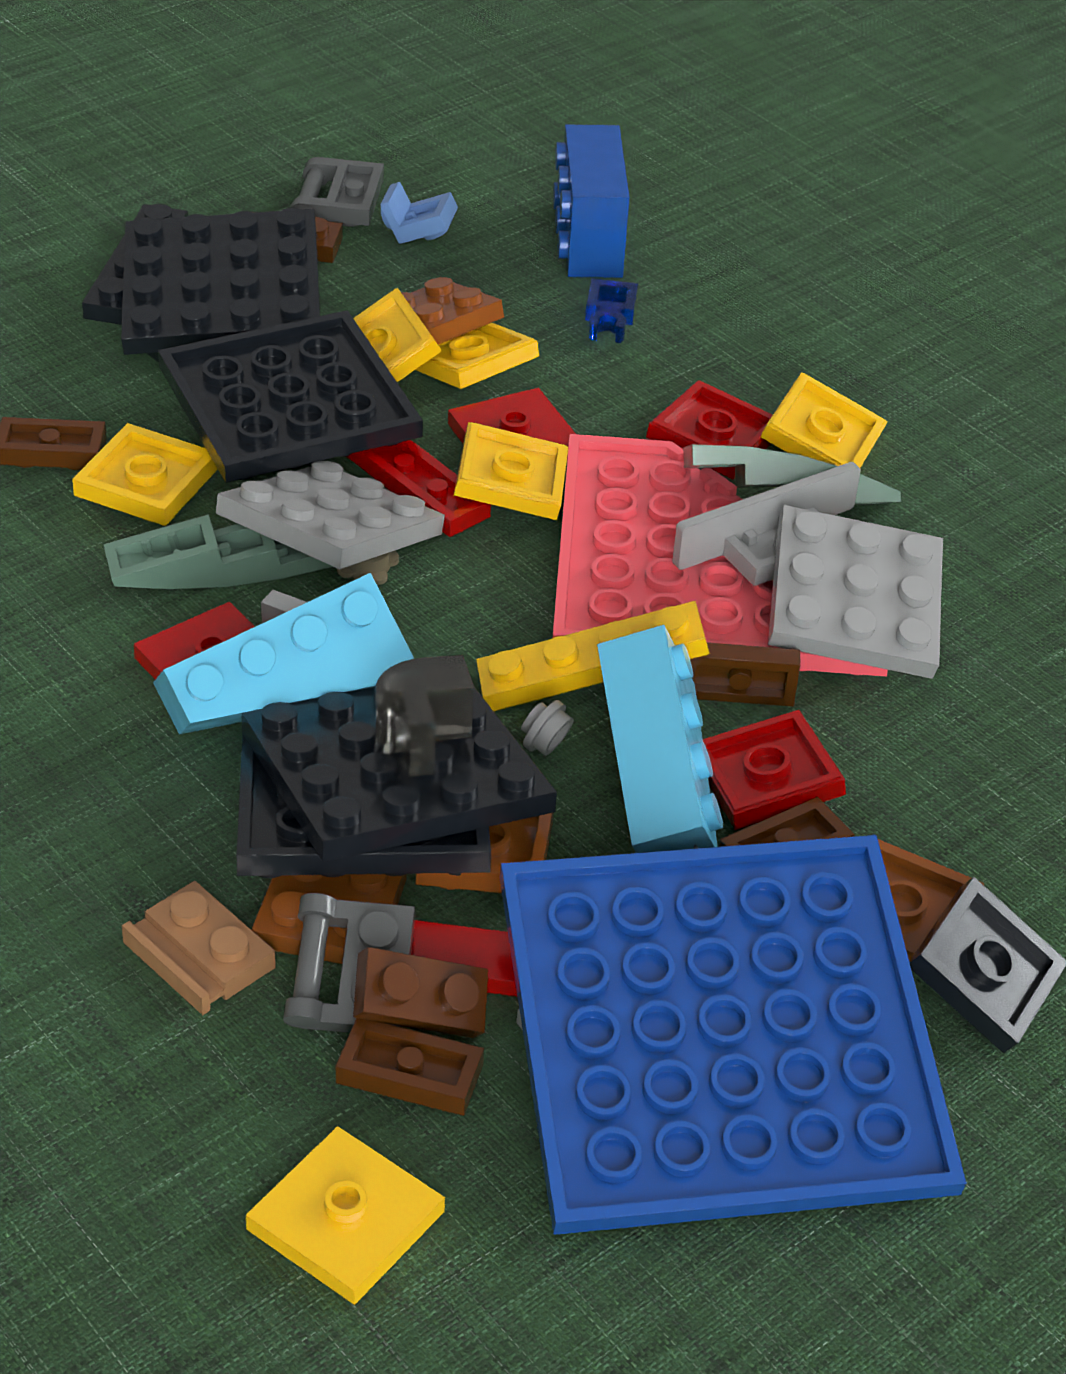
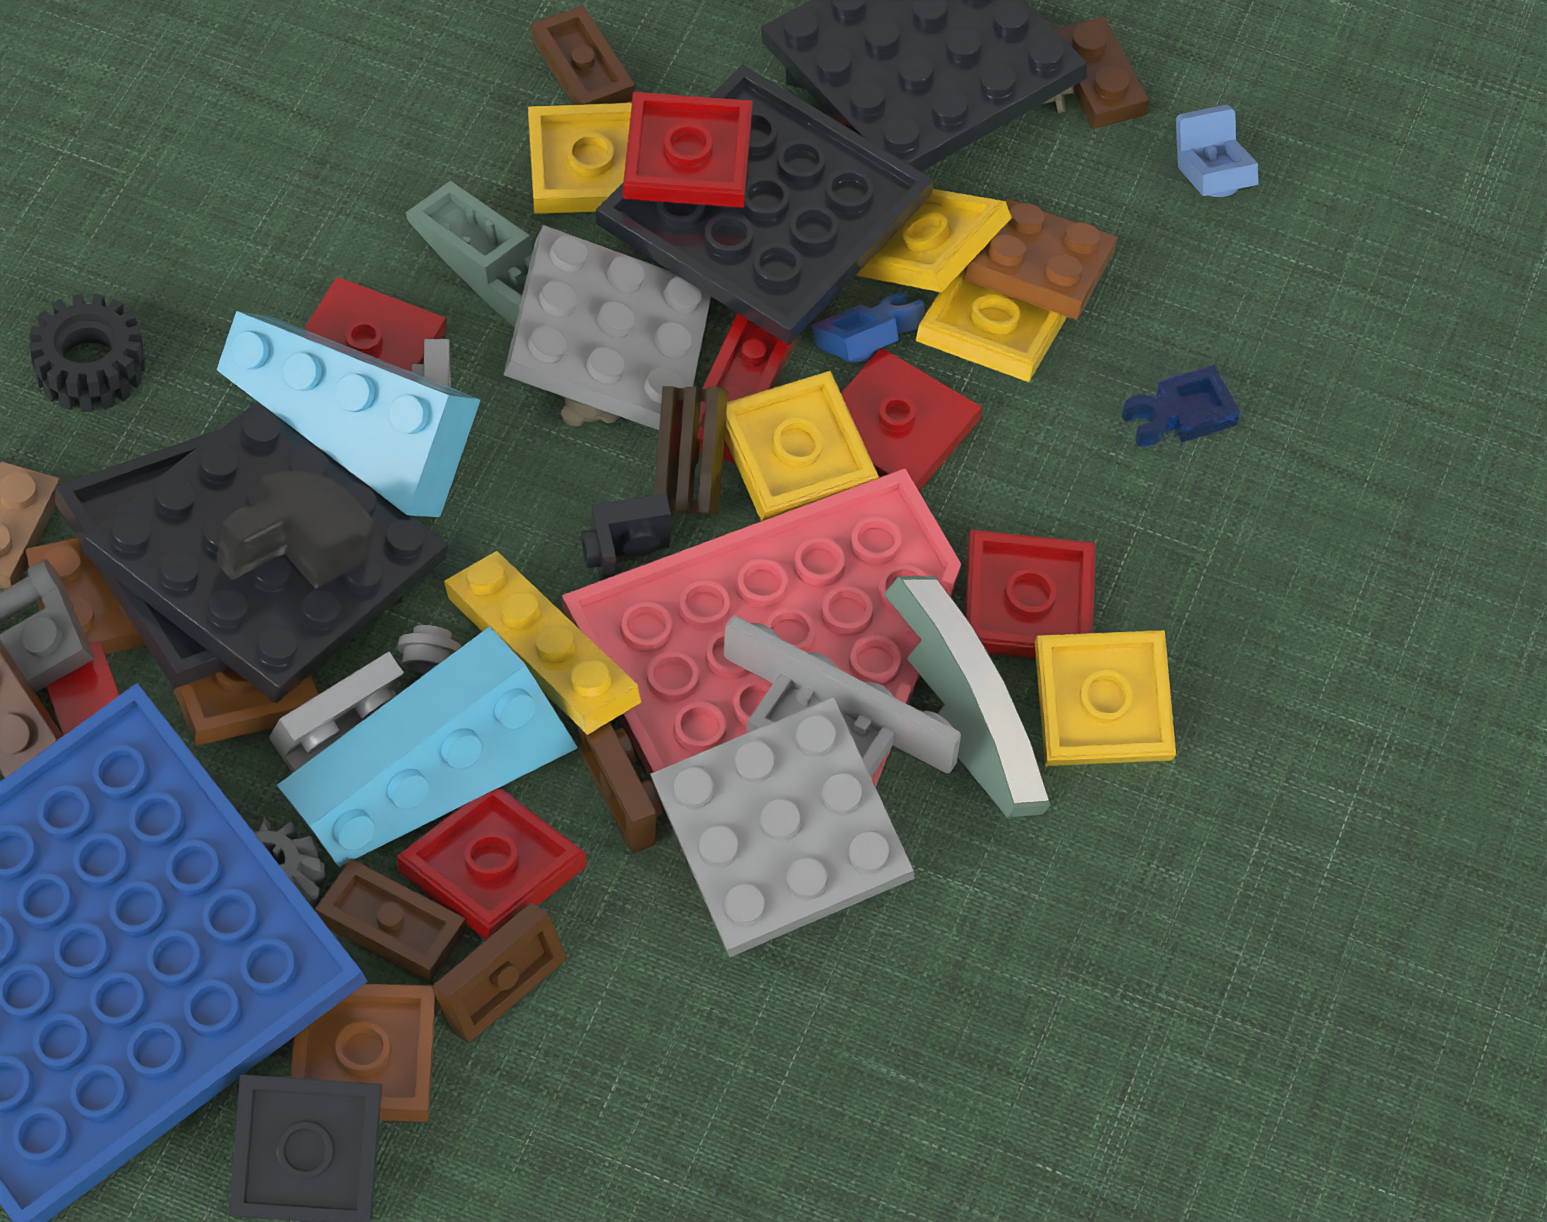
camera: 60 degrees right, 15 degrees up
(82, 838) = (82, 325): none -> black tyre
(224, 392) = (687, 149): none -> red plate
(351, 194) = (1223, 77): dark grey plate -> none
(433, 404) = (863, 330): none -> blue plate
(491, 502) = (680, 448): none -> dark brown tile
(517, 590) = (625, 528): none -> black bracket
(584, 789) = (335, 712): none -> light grey bracket
(591, 201) = (1345, 296): blue brick -> none
(866, 784) = (499, 972): none -> reddish brown plate

